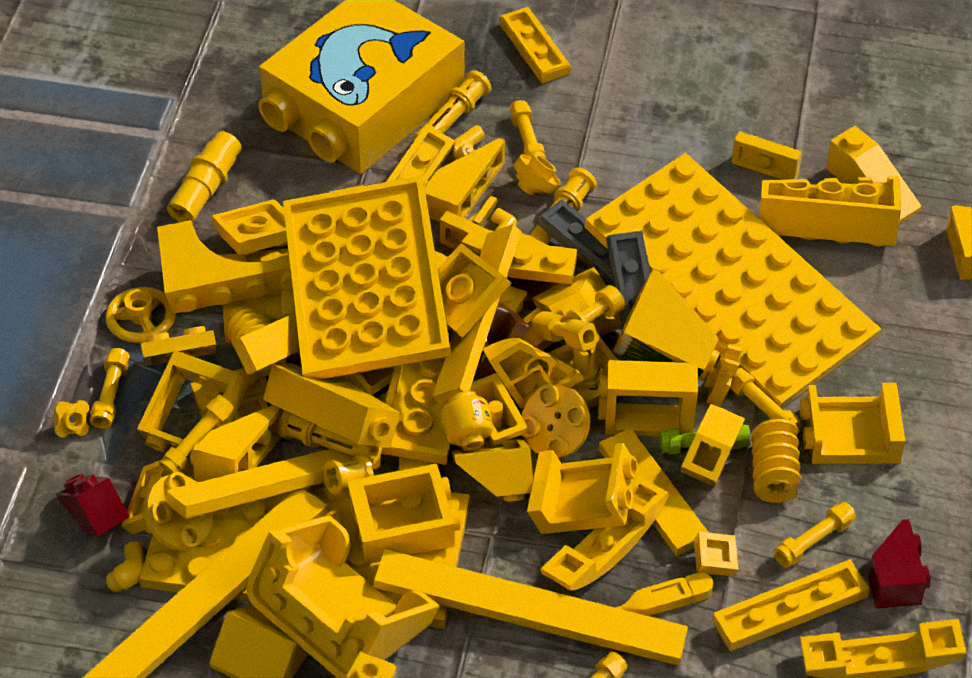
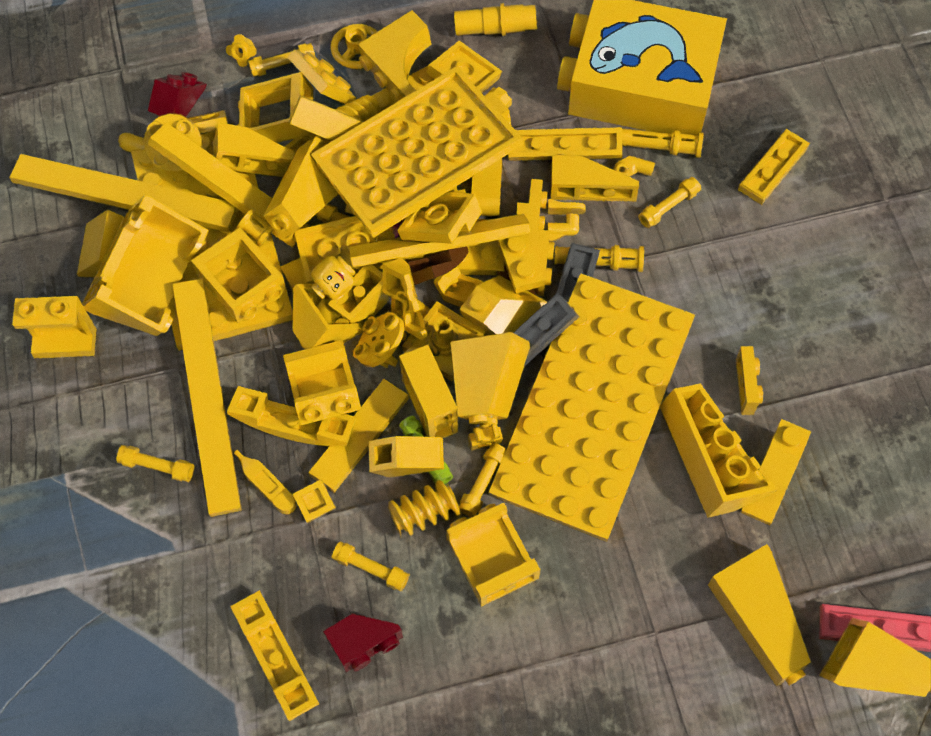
camera: 65 degrees right, 15 degrees up
(216, 412) = (261, 121): yellow bar -> none
(536, 175) = (624, 224): yellow plate -> none
(577, 326) = (453, 305): yellow bar -> none
(790, 605) = (292, 573): yellow plate -> none

